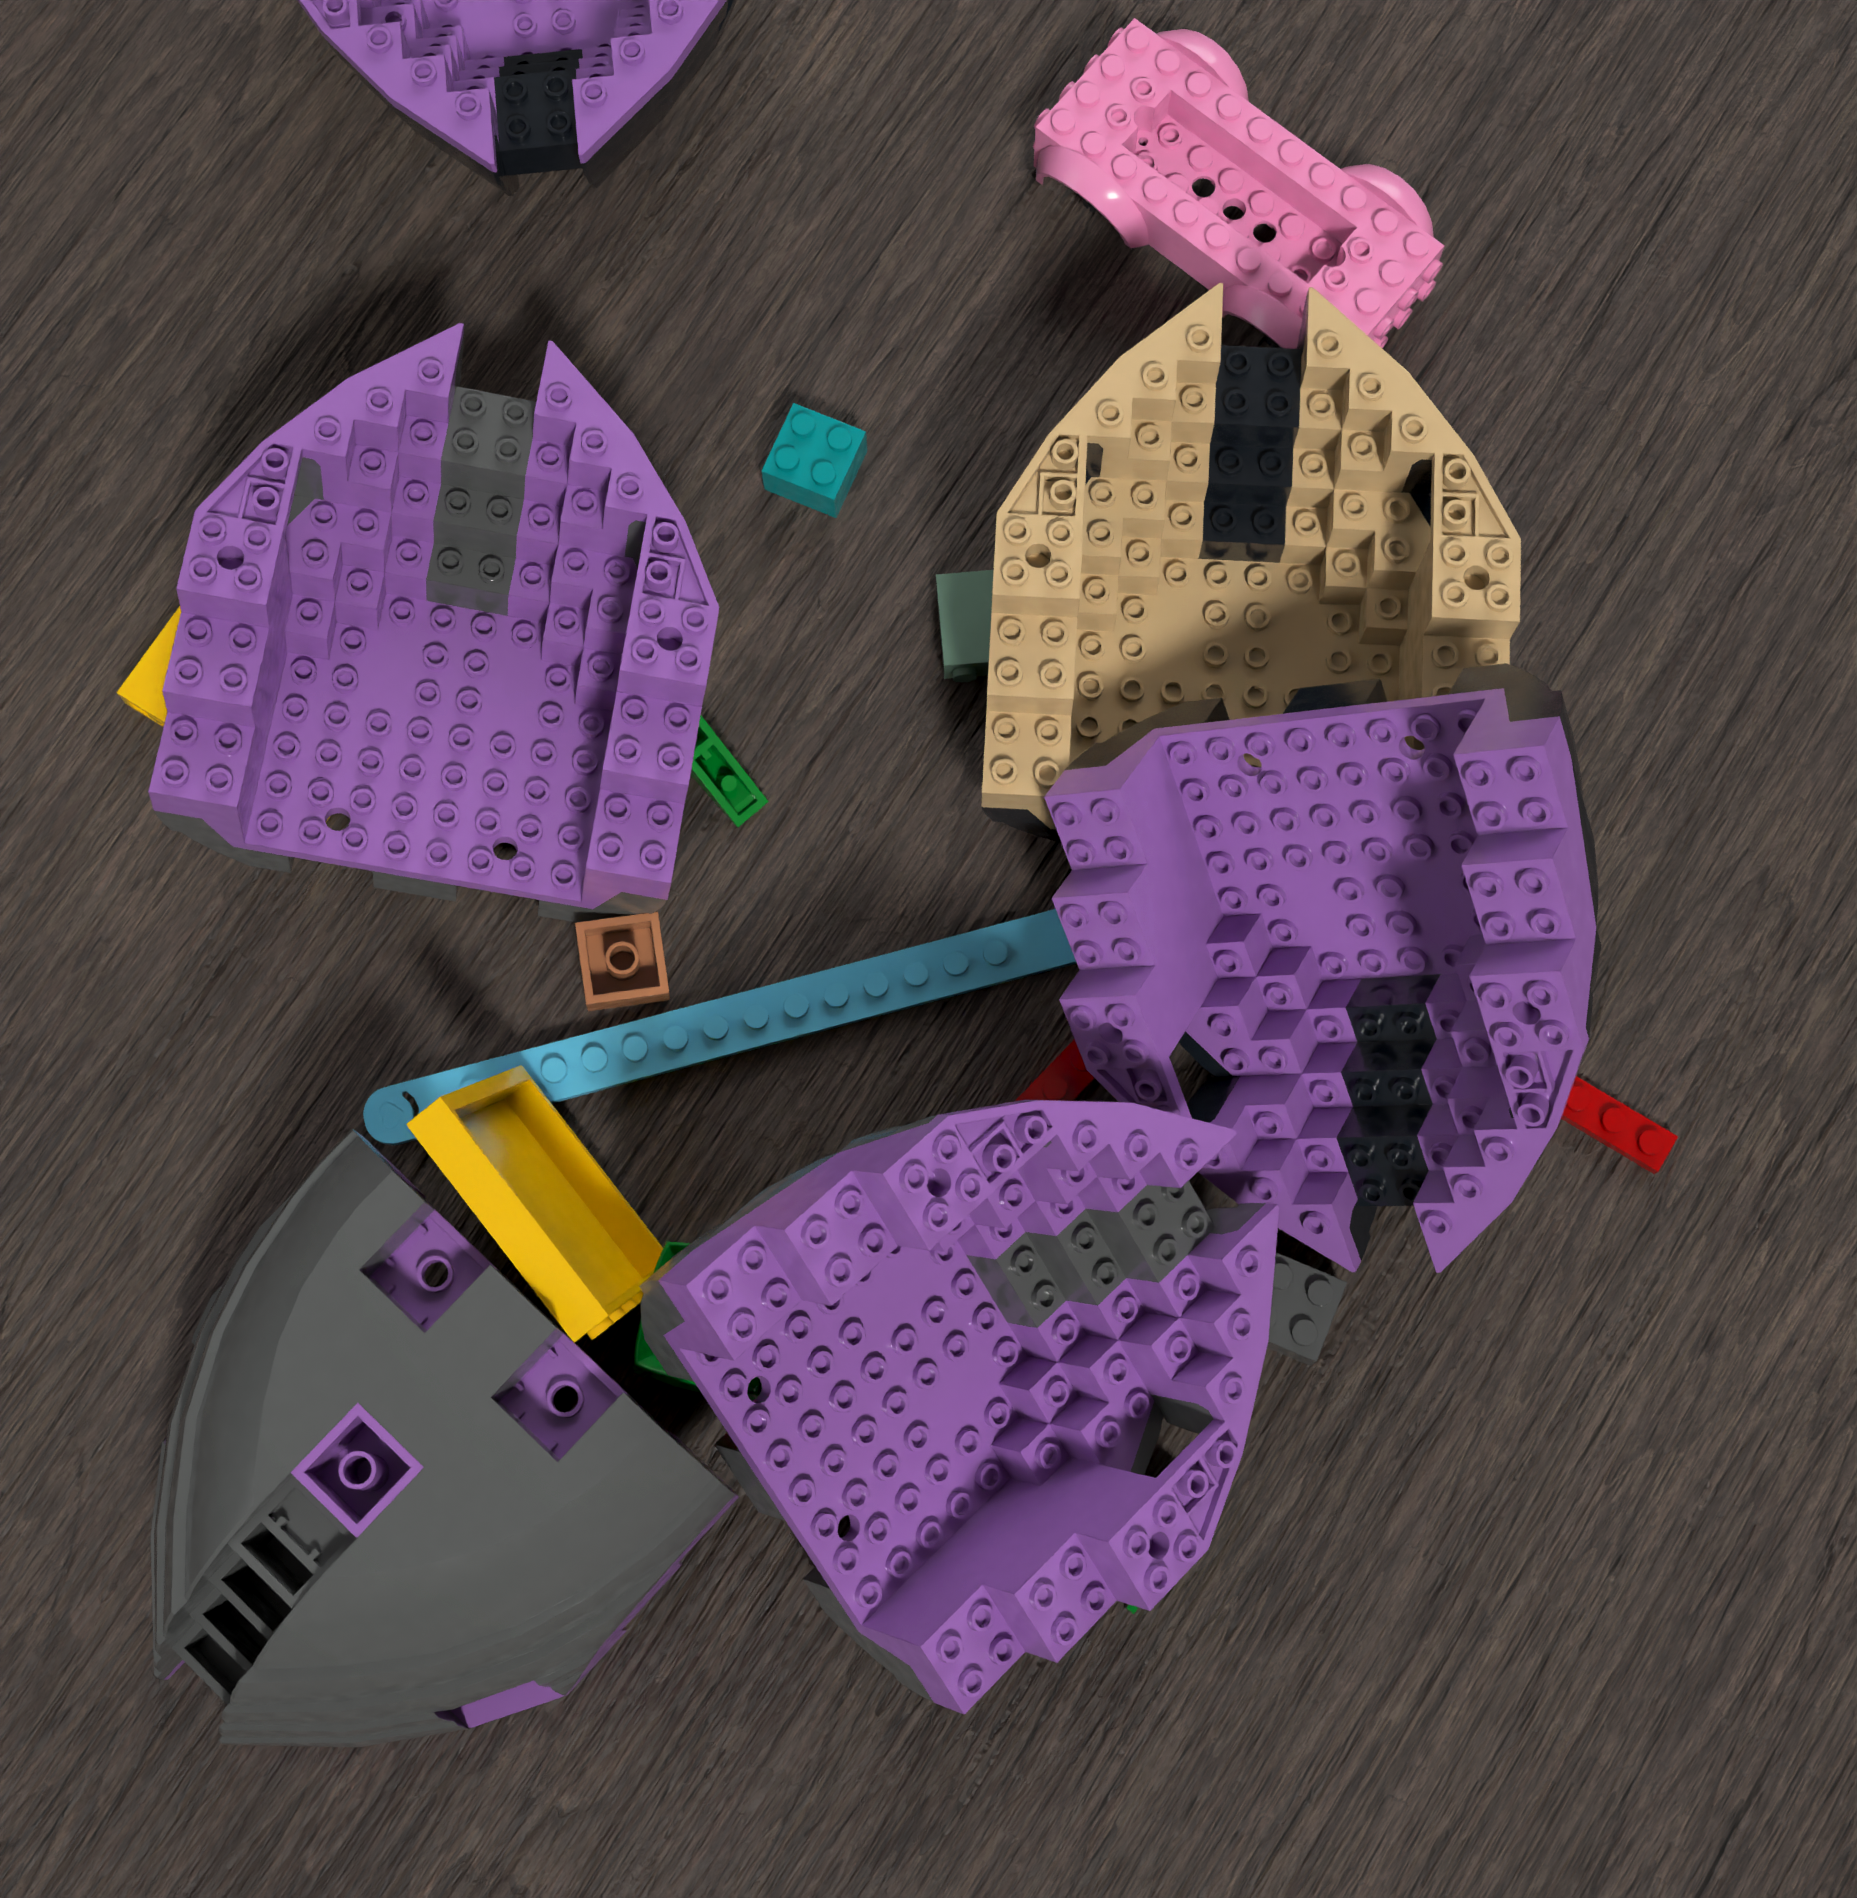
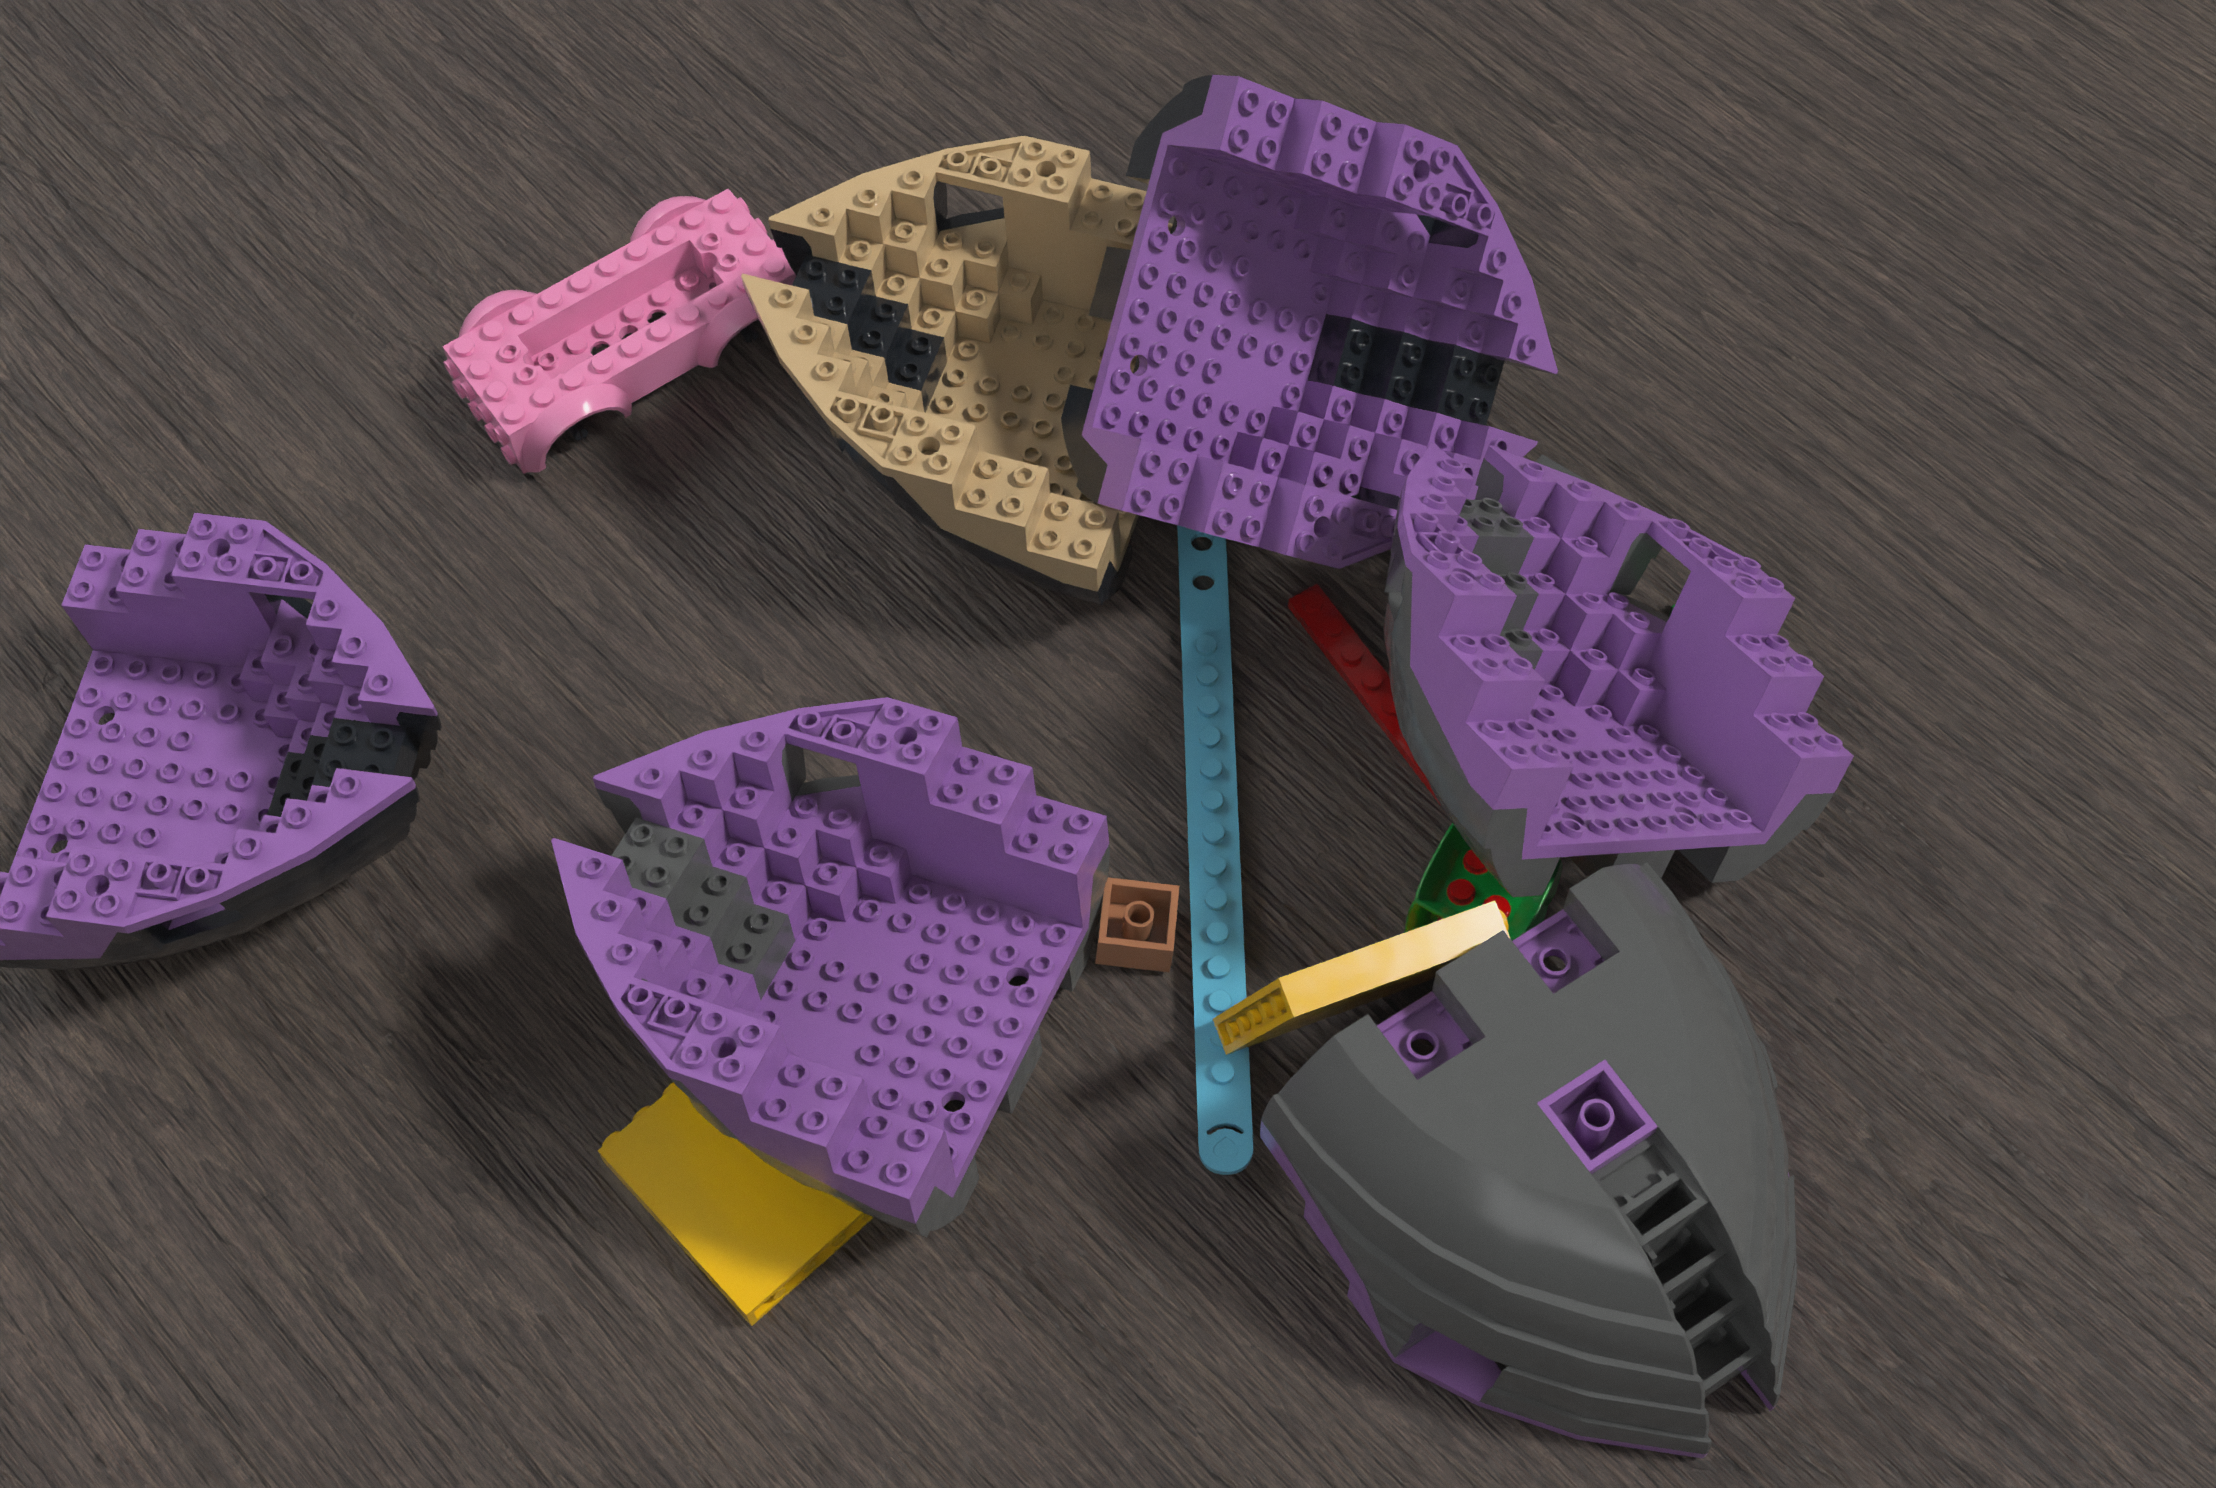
camera: 75 degrees left, 15 degrees down
(814, 460) = (728, 683): teal brick -> none
(965, 623) = (918, 595): sand green brick -> none

